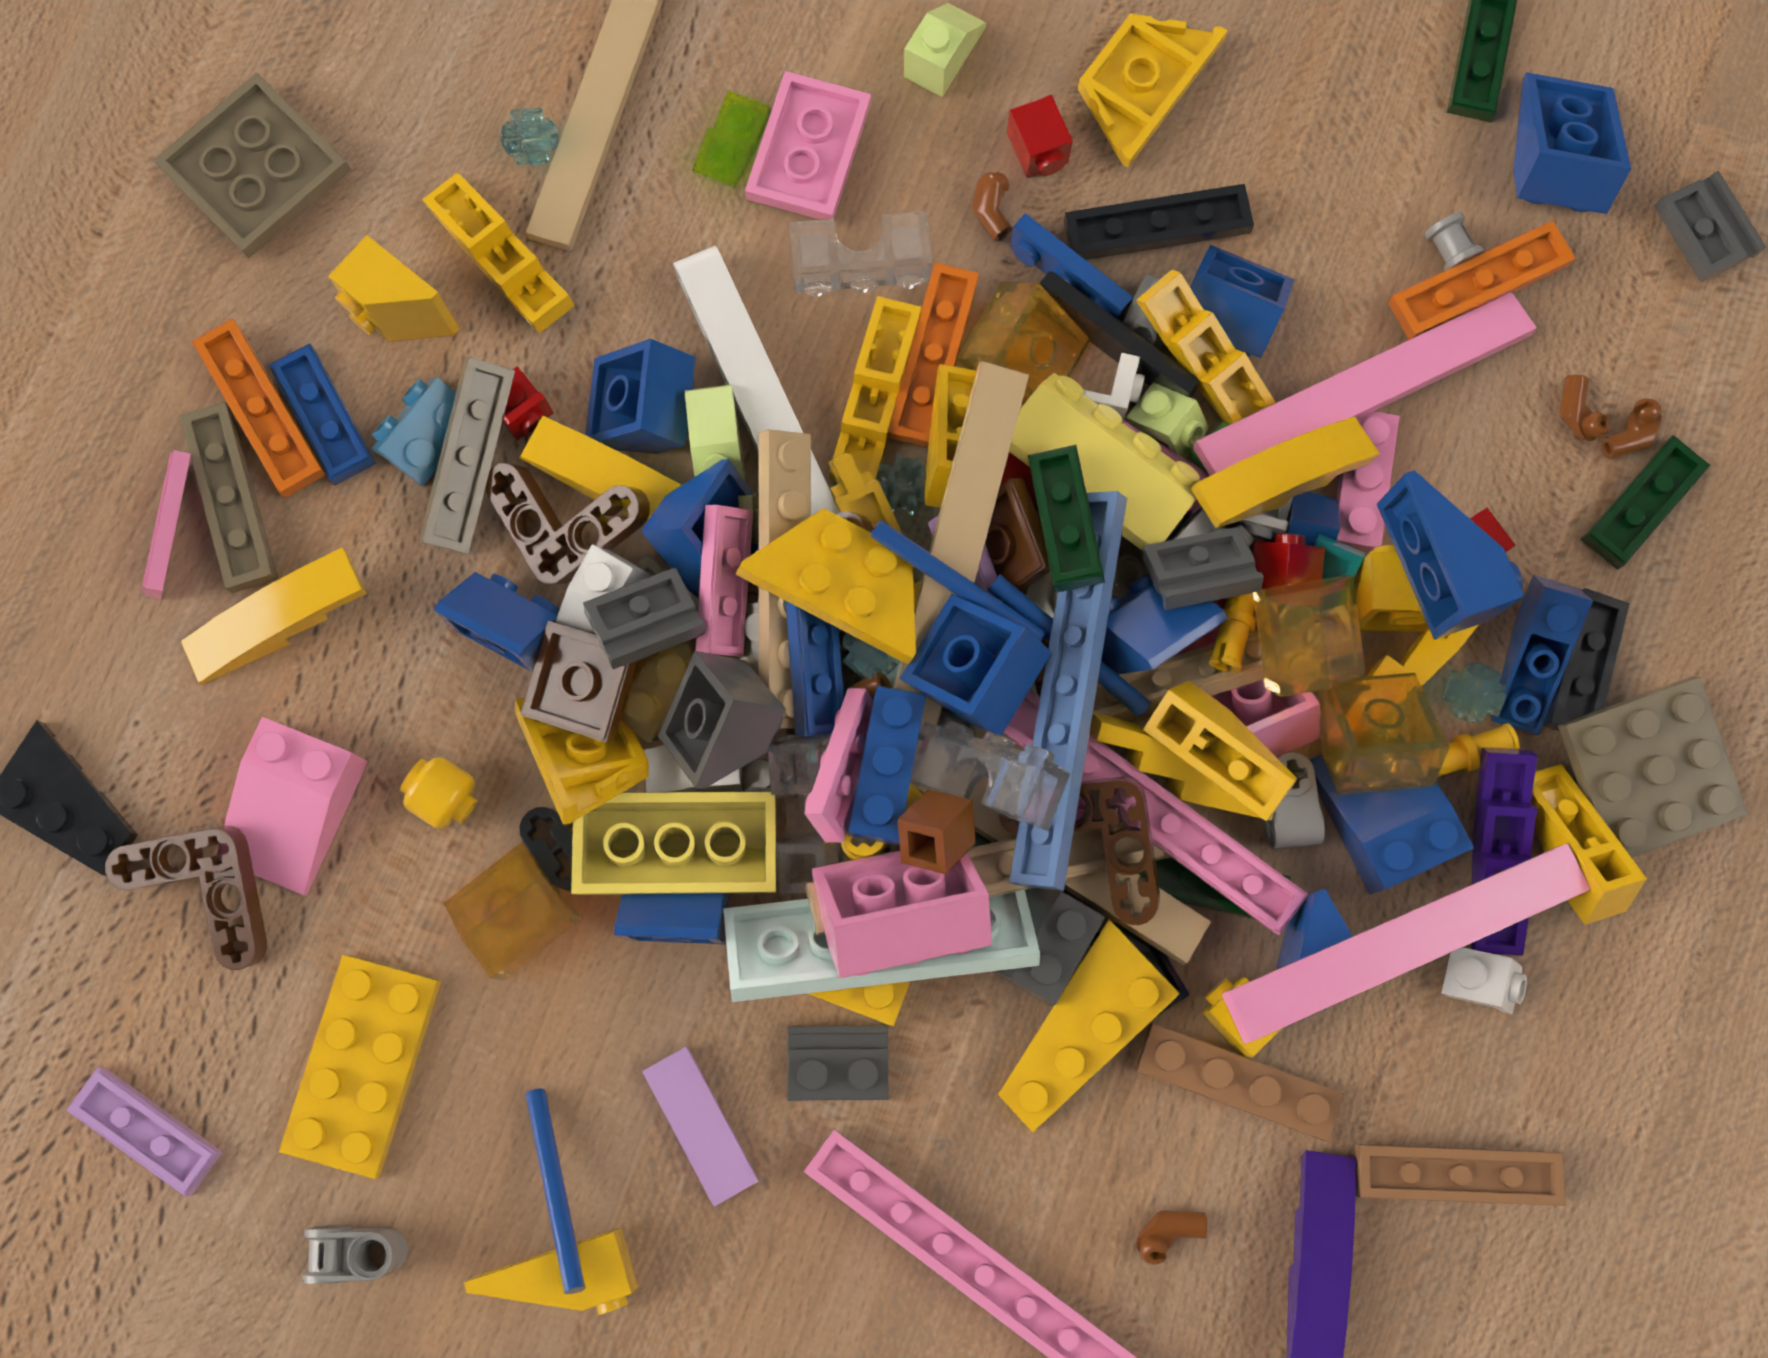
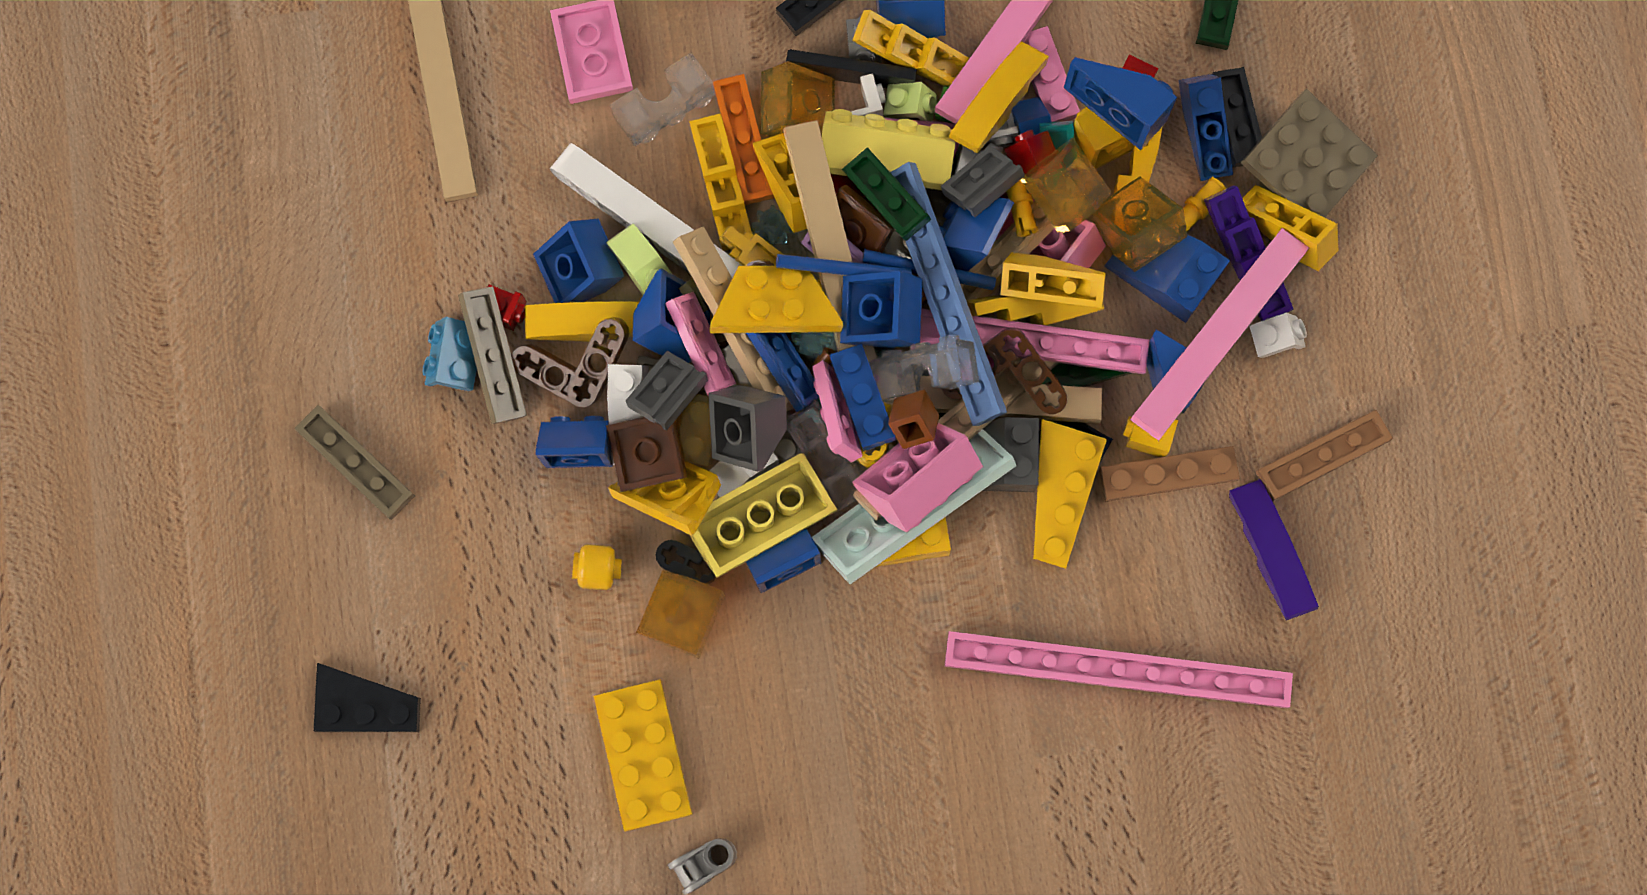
camera: 25 degrees left, 0 degrees up
(144, 1131) = (533, 867): lavender tile -> none
(165, 524) = (326, 500): bright pink tile -> none
(214, 874) = (487, 692): reddish brown beam -> none
(252, 165) = (243, 248): dark tan plate -> none
(259, 408) = (340, 397): orange plate -> none
(272, 616) = (428, 518): yellow slope -> none
(291, 802) = (506, 626): bright pink slope -> none
(322, 414) = (381, 380): blue tile -> none
(389, 296) = (387, 282): yellow slope -> none
(498, 252) = (433, 220): yellow slope -> none
(529, 136) = (412, 136): clear light blue gear -> none
(538, 1279) = (844, 800): yellow slope -> none
(555, 1192) = (805, 757): blue bar -> none
(700, 1126) = (868, 675): lavender tile -> none
(732, 140) = (540, 71): clear neon green slope -> none
(837, 1063) = (928, 593): dark grey plate -> none
(986, 204) = (723, 28): dark orange arm -> none
(1041, 248) = (775, 38): blue plate -> none
(1165, 1228) = (1173, 582): dark orange arm -> none
(1299, 816) = (1119, 298): light grey piece -> none
(1474, 692) = (1182, 169): clear light blue gear -> none

